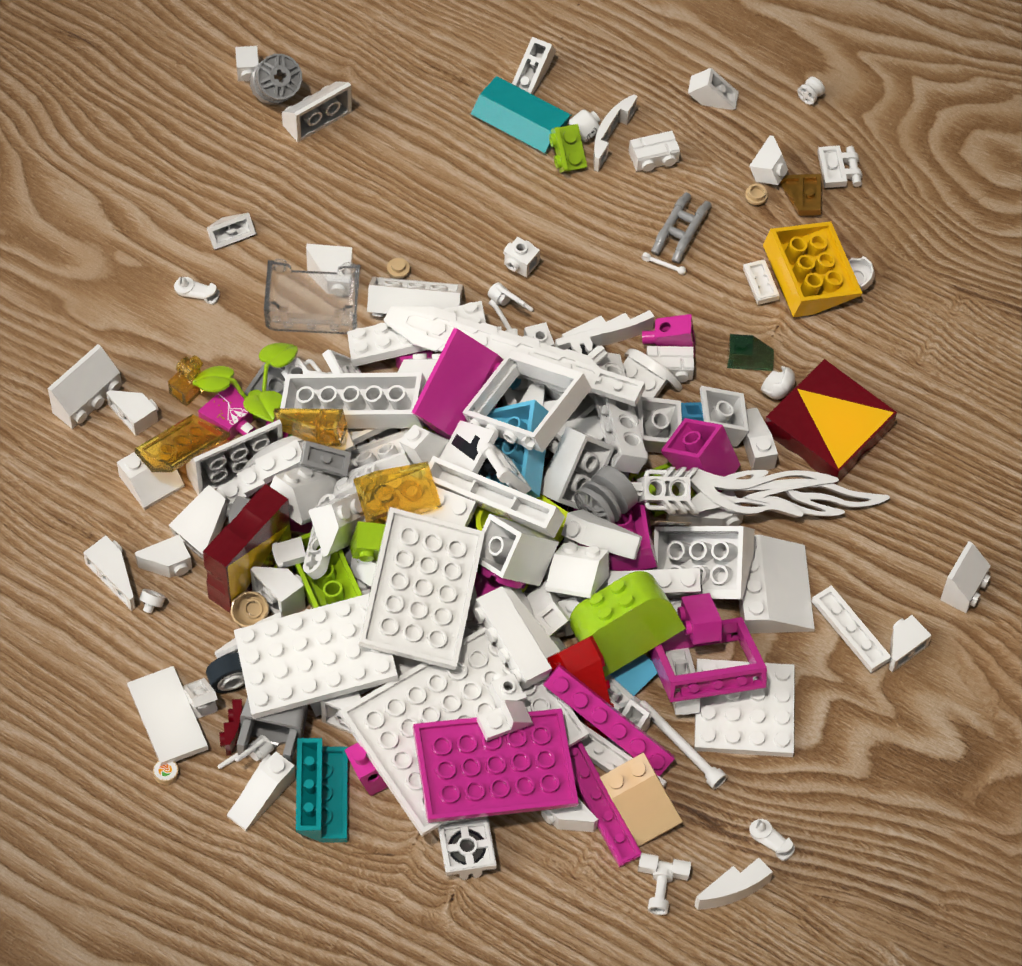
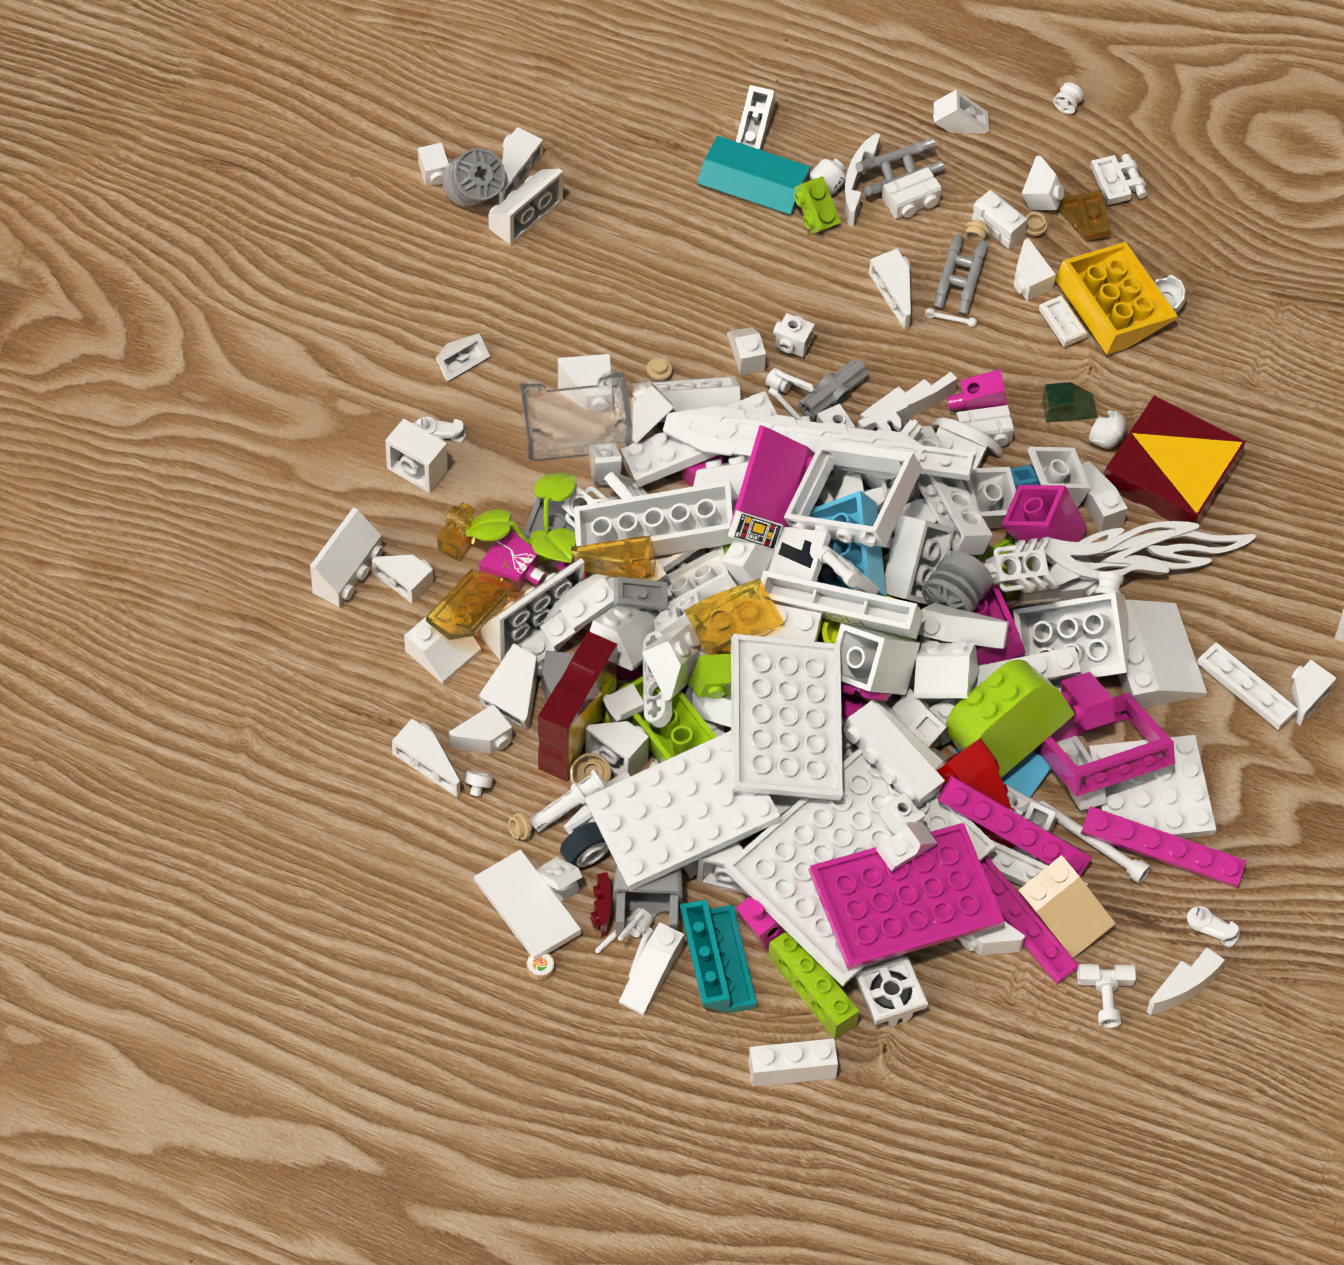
camera: 10 degrees left, 0 degrees up
(168, 308) = (416, 455): none -> white brick
(178, 645) = (520, 826): none -> tan plate
(223, 630) = (572, 798): none -> white pin
(321, 69) = (519, 157): none -> white slope
(327, 338) = (604, 459): none -> white slope
(365, 896) = (793, 1062): none -> white brick
(375, 300) = (647, 409): none -> white slope
(400, 832) = (814, 985): none -> lime brick
(433, 419) = (755, 530): none -> tile
(478, 264) = (747, 350): none -> white slope
(545, 308) = (833, 388): none -> light grey piece
(619, 221) = (892, 279): none -> white slope
(655, 116) = (906, 155): none -> light grey piece
(703, 191) = (976, 230): none -> tan plate
(725, 185) = (1001, 219): none -> white brick
(742, 760) = (1163, 847): none -> dark pink plate
(743, 236) = (1032, 273): none -> white slope
(743, 517) = (1108, 583): none -> white wheel

